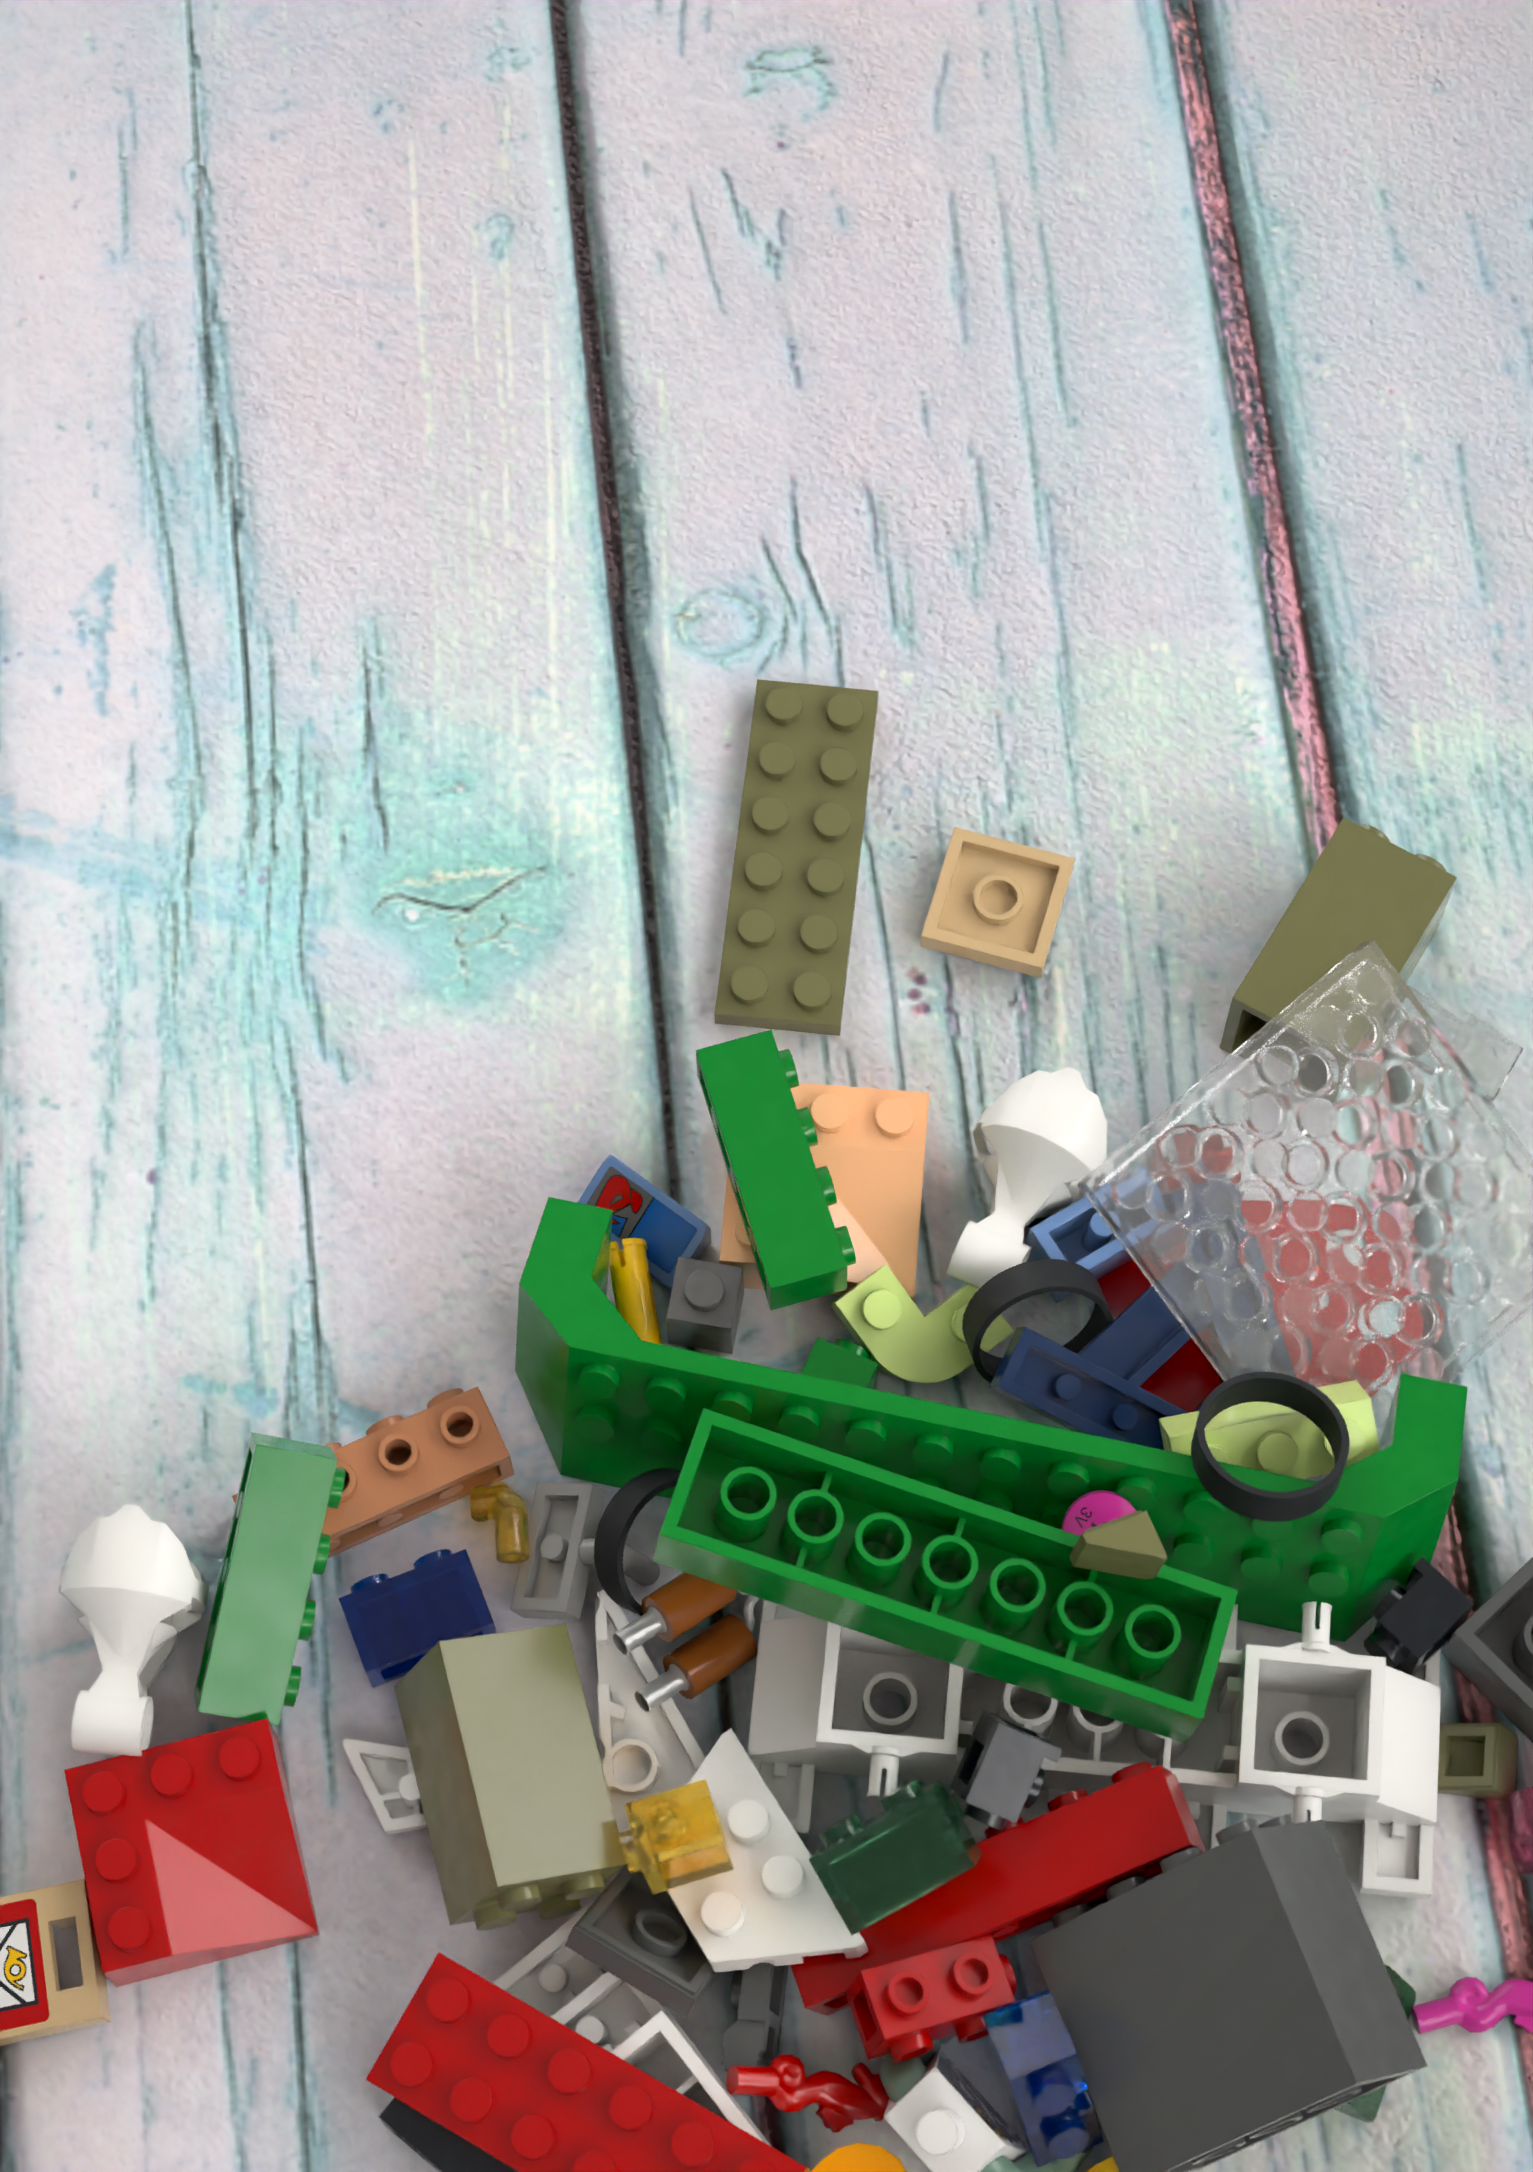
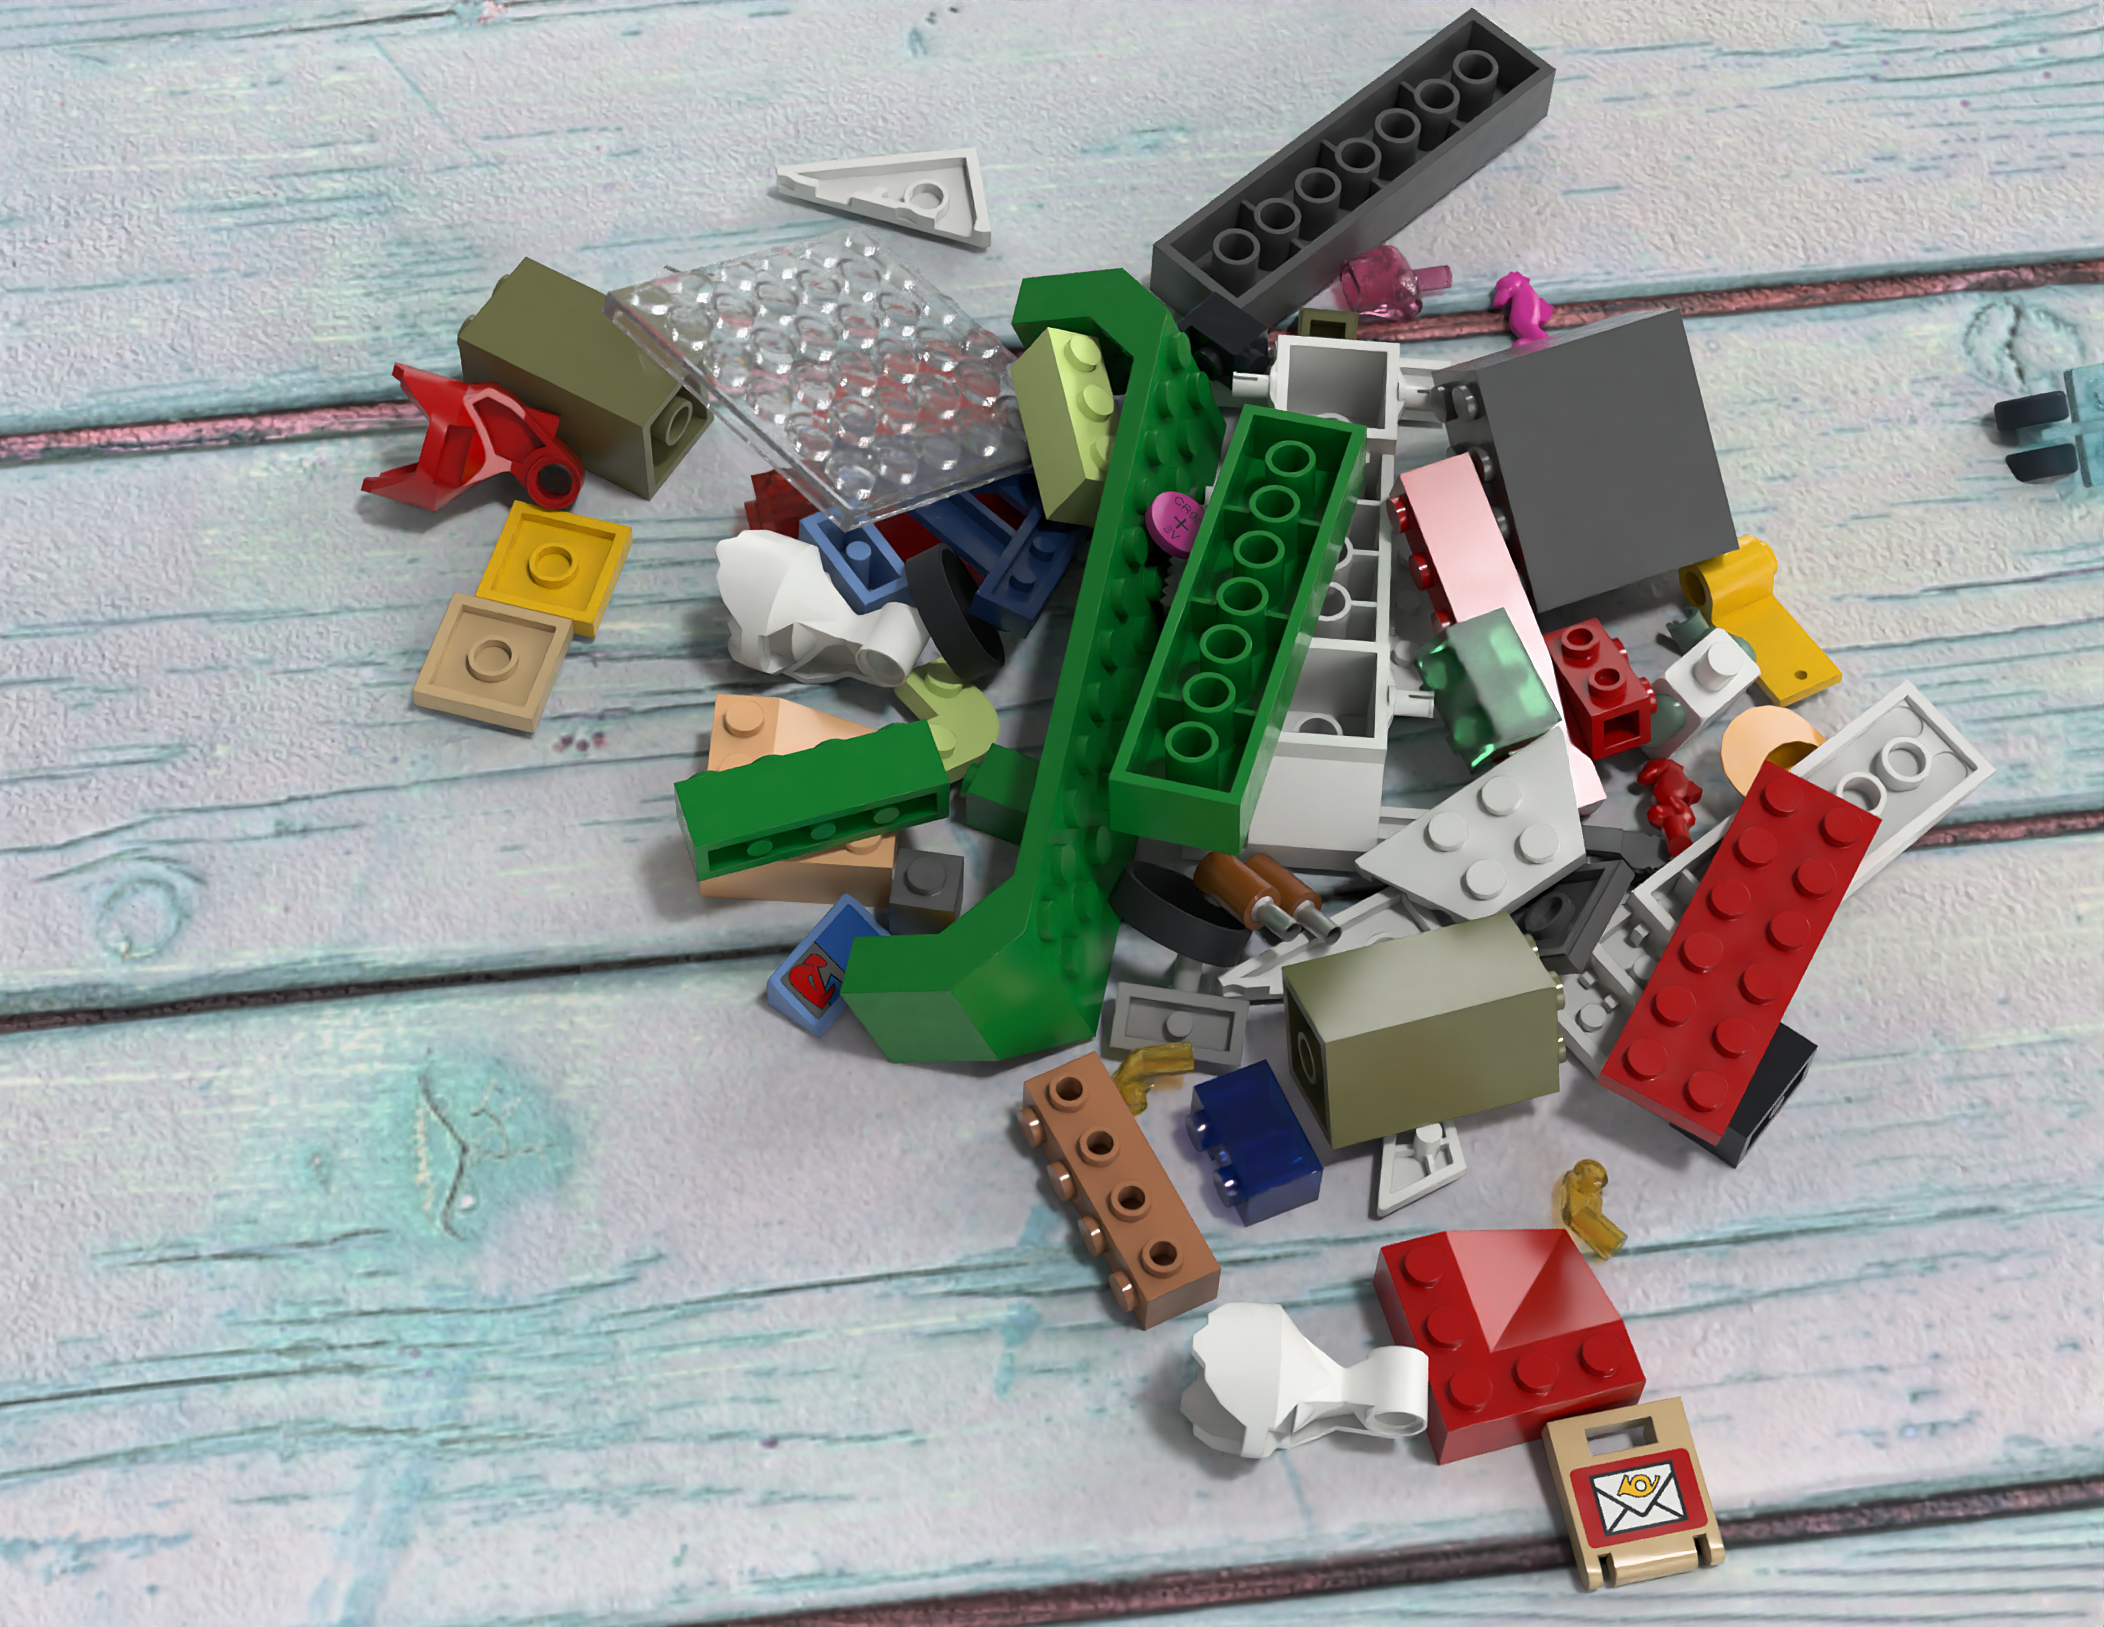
camera: 95 degrees left, 10 degrees down
(267, 1579) = (1241, 1247): brick -> none
(335, 1951) = (1582, 1208): none -> clear yellow arm
(675, 1837) = (1480, 866): clear yellow brick -> none
(797, 858) = (424, 839): olive plate -> none
(1002, 1770) = (1403, 603): brick -> none
(1043, 2078) = (1655, 606): clear blue brick -> none
(1114, 953) = (557, 564): none -> yellow plate
(1121, 1547) = (1222, 460): olive slope -> none
(1251, 854) = (474, 436): none -> red piece
(1285, 1391) = (1086, 341): black tyre -> none

